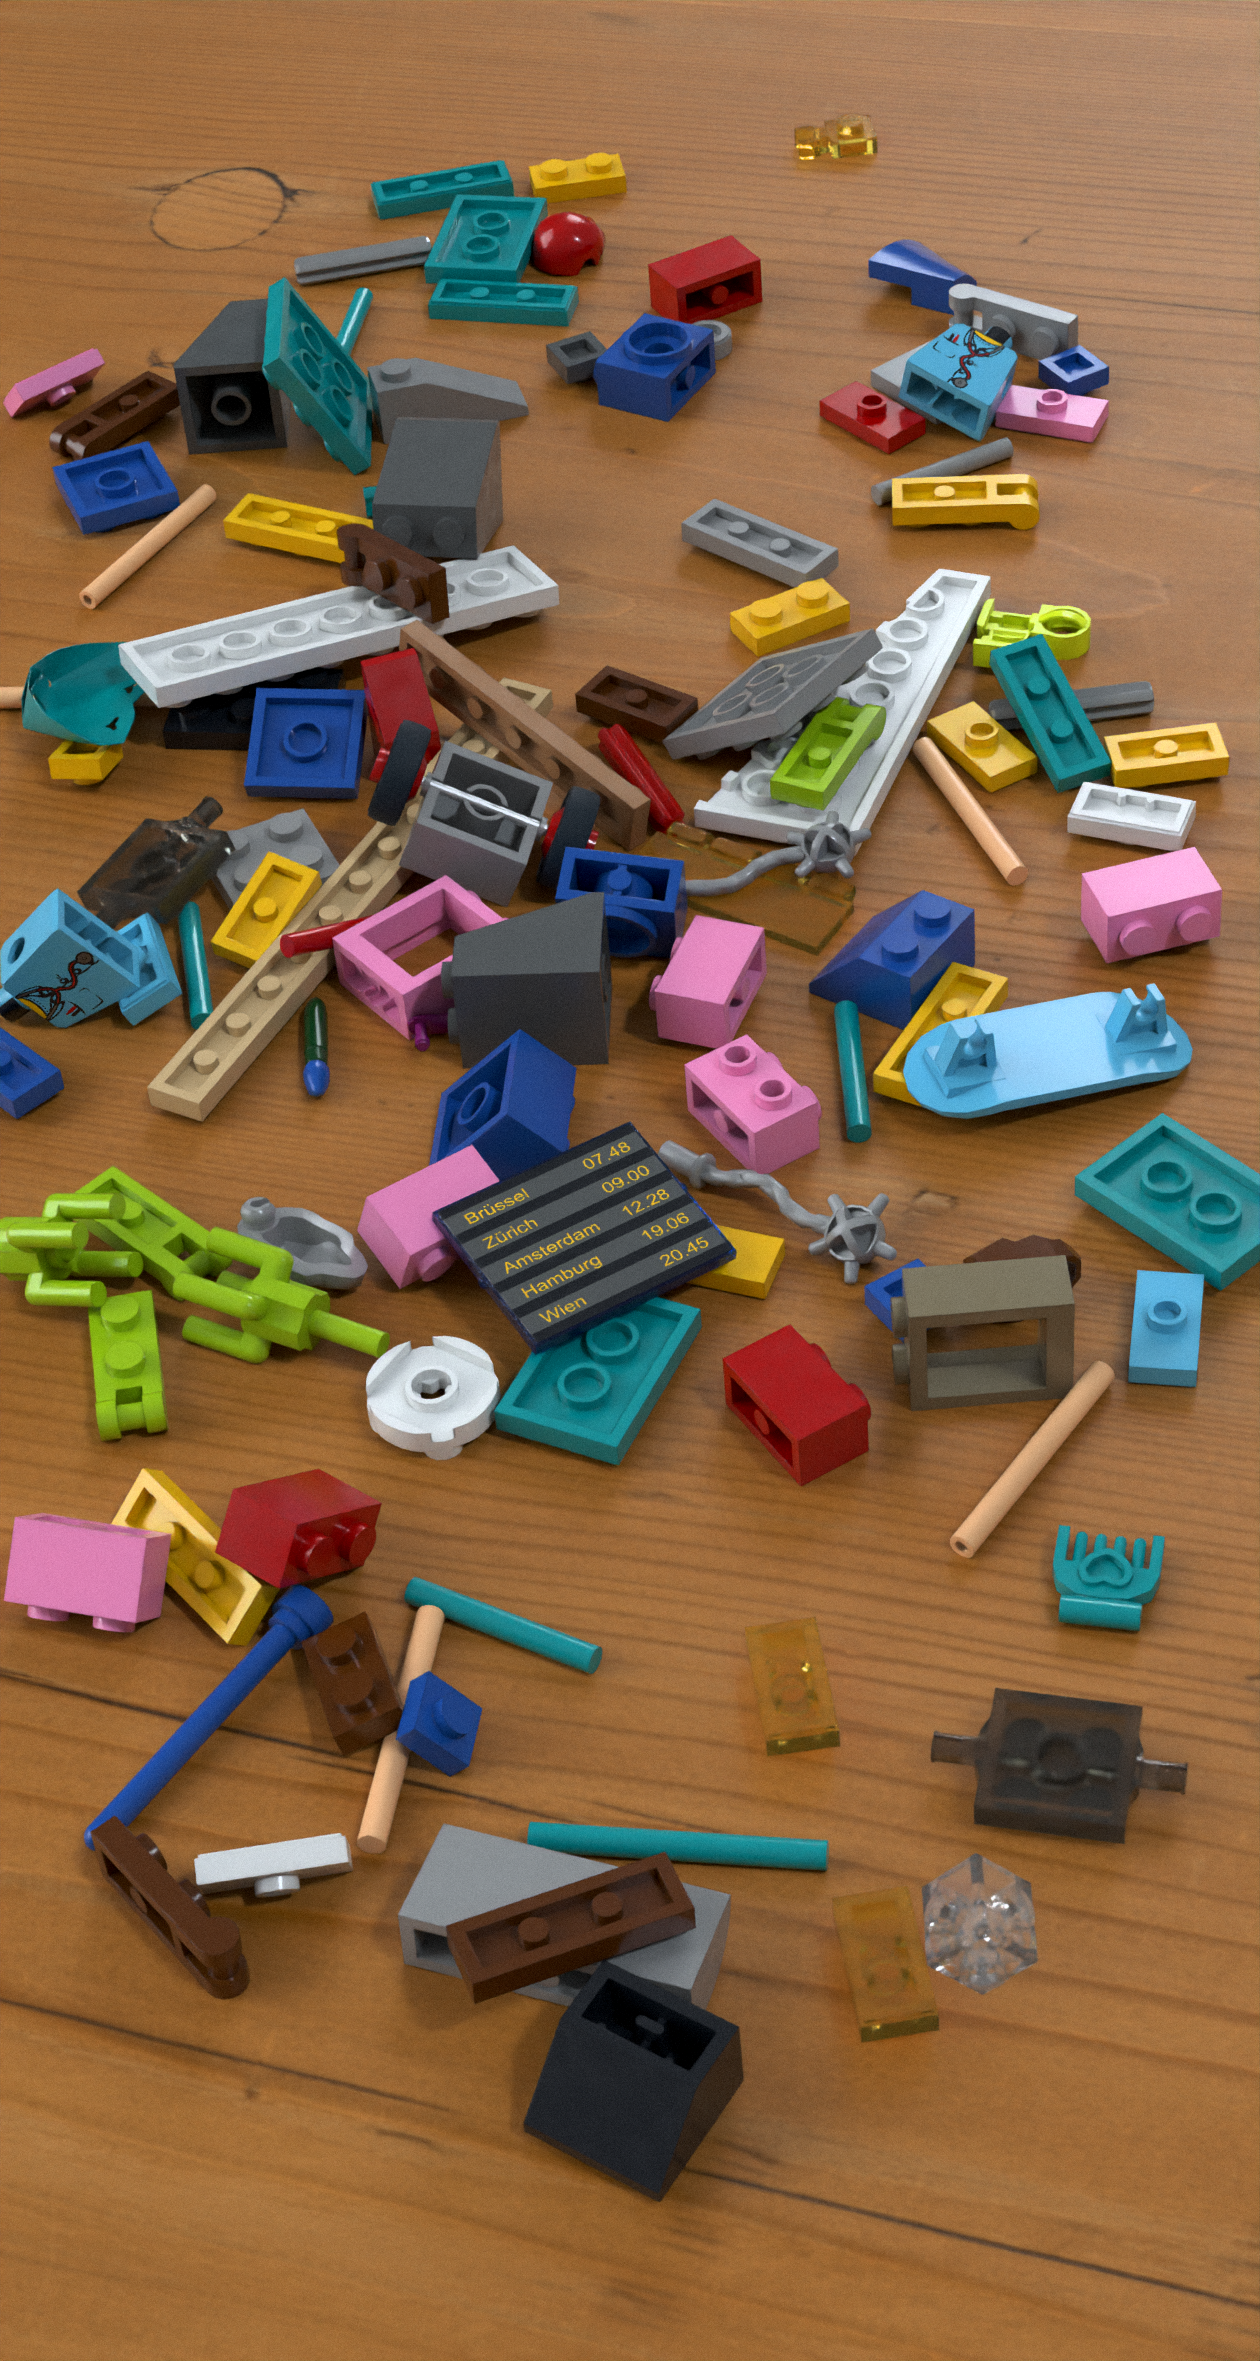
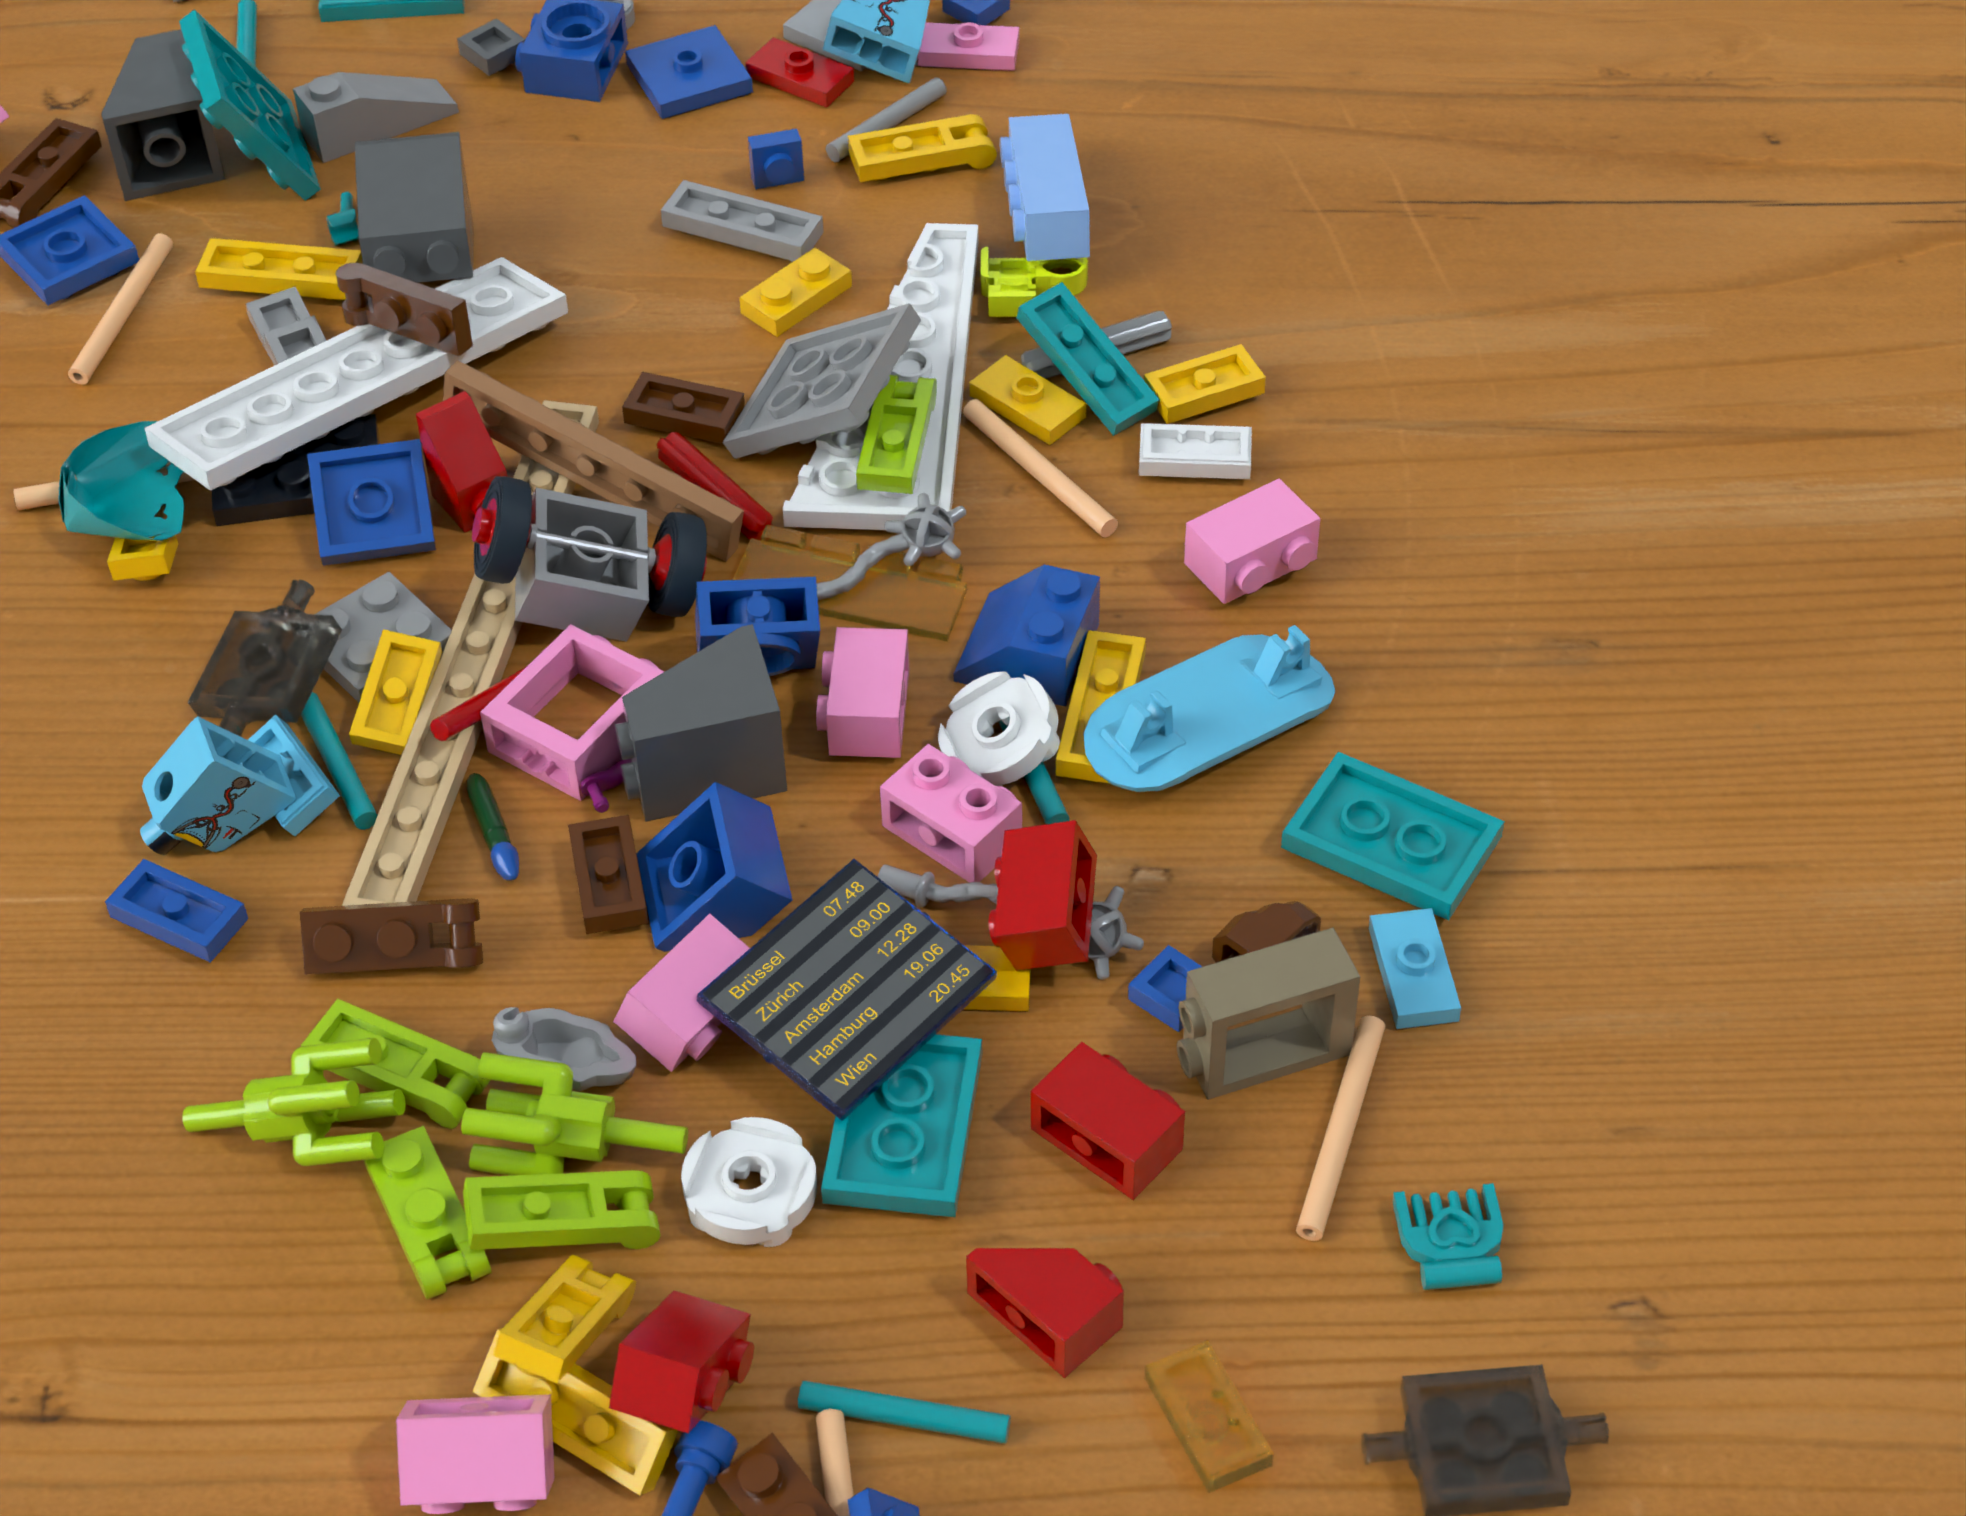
camera: 20 degrees left, 5 degrees up
(180, 1121) = (389, 936): none -> reddish brown plate
(203, 1469) = (563, 1319): none -> yellow plate
(246, 1382) = (560, 1210): none -> lime plate
(289, 575) = (284, 325): none -> light grey slope
(404, 1104) = (608, 874): none -> reddish brown plate
(676, 1552) = (1048, 1300): none -> red slope
(763, 404) = (689, 71): none -> blue plate
(803, 1186) = (1044, 895): none -> red brick
(813, 491) = (776, 158): none -> blue plate
(850, 1049) = (1024, 743): none -> white plate
(1068, 549) = (1045, 187): none -> light blue brick

